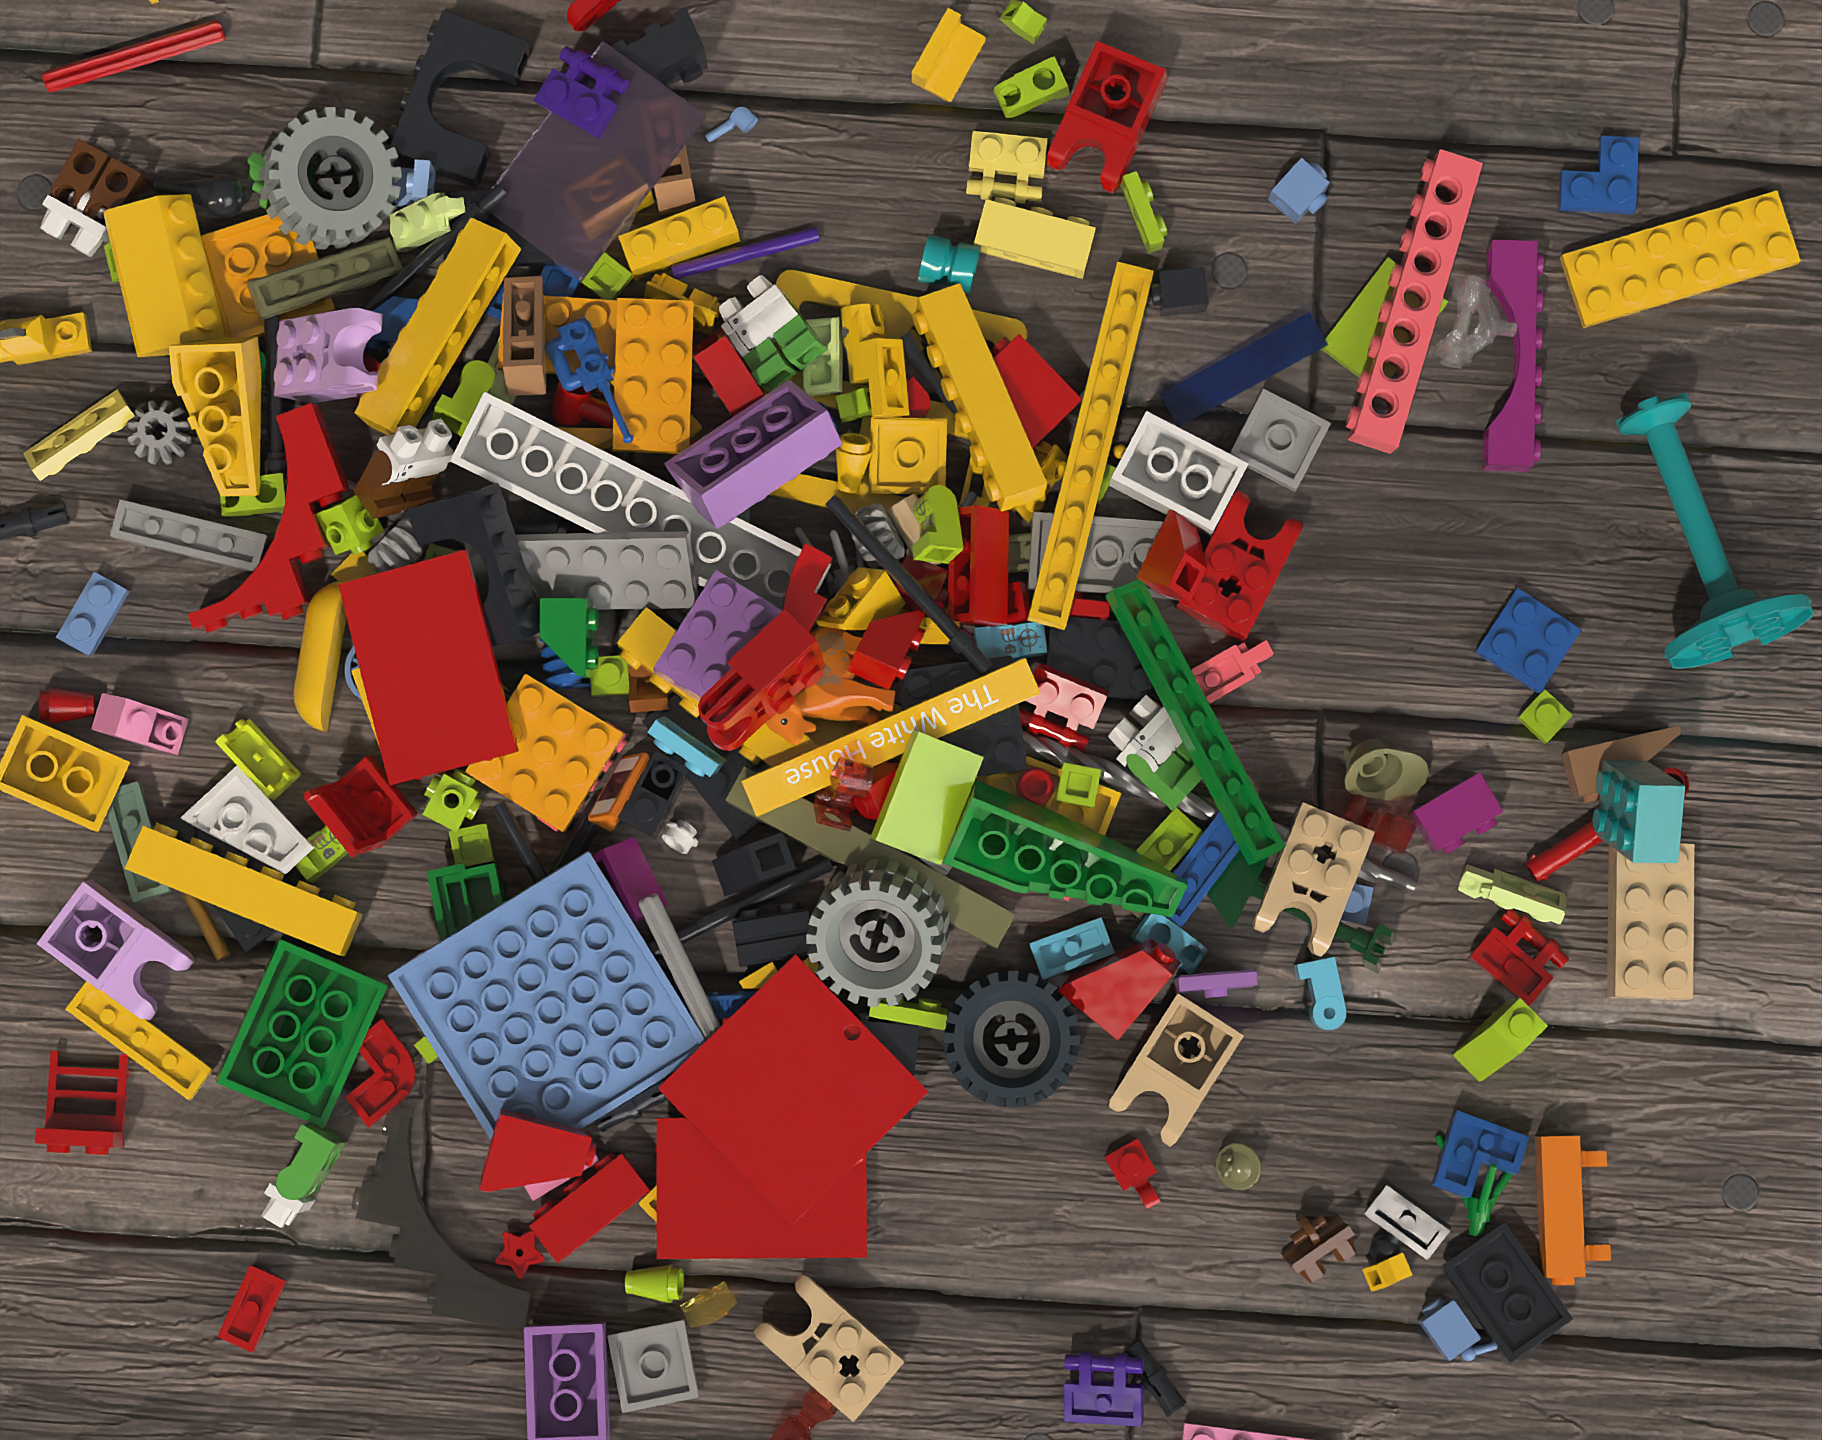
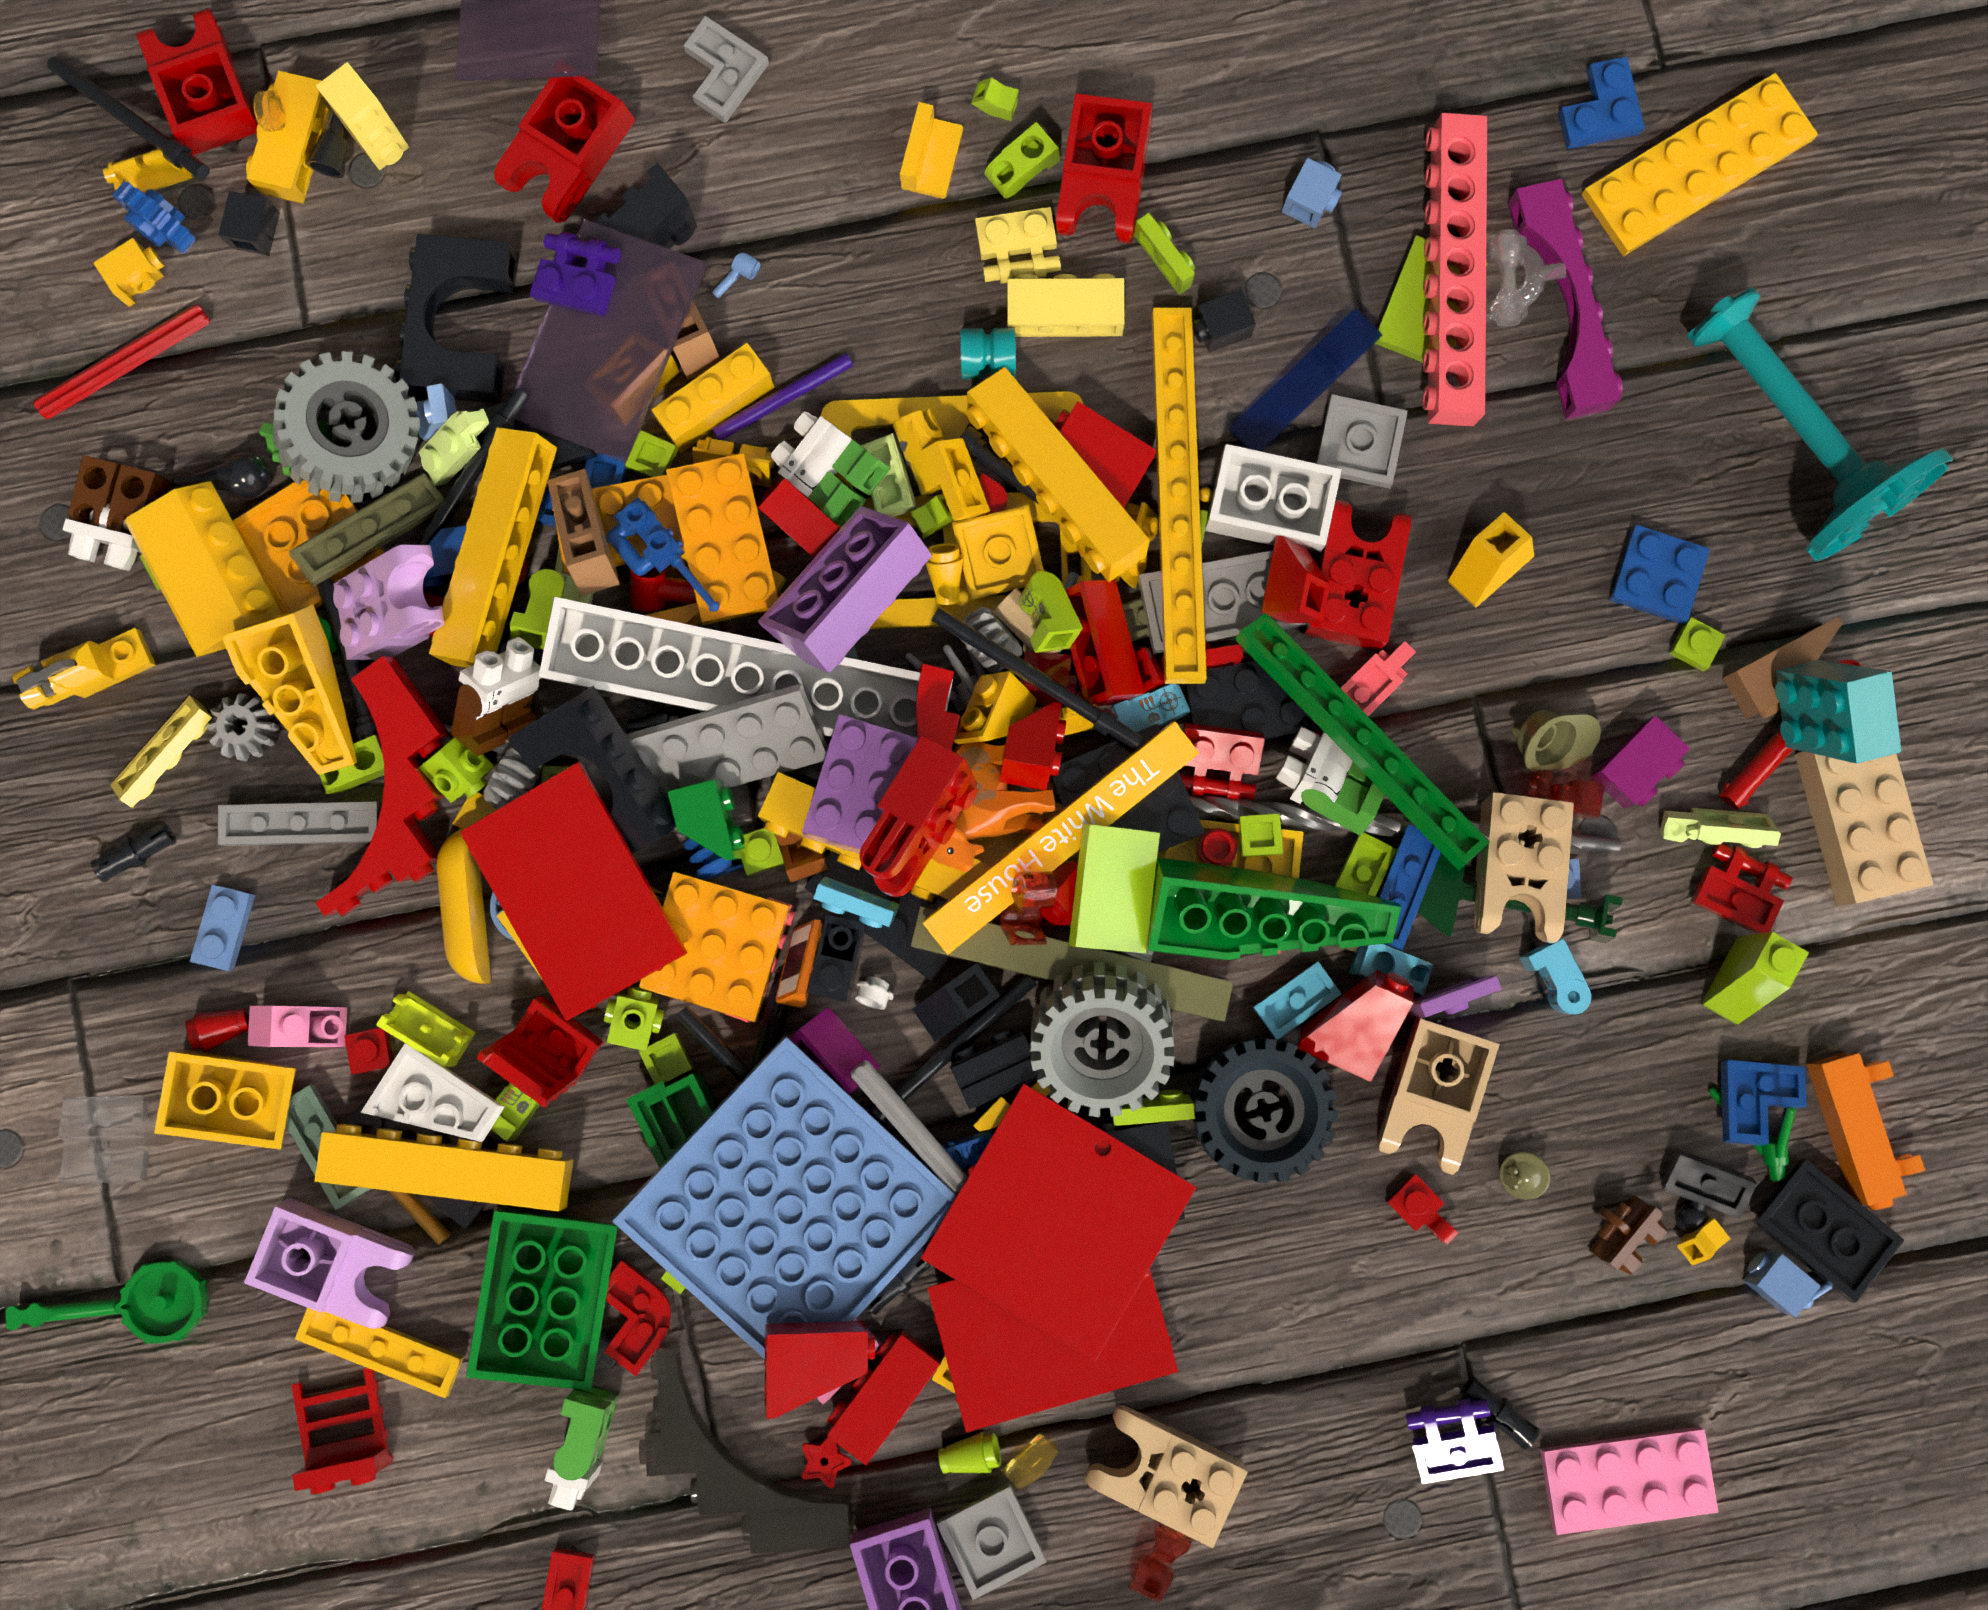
camera: 15 degrees left, 0 degrees up
(199, 764) = (369, 1051): none -> red plate
(1369, 585) = (1492, 559): none -> yellow slope

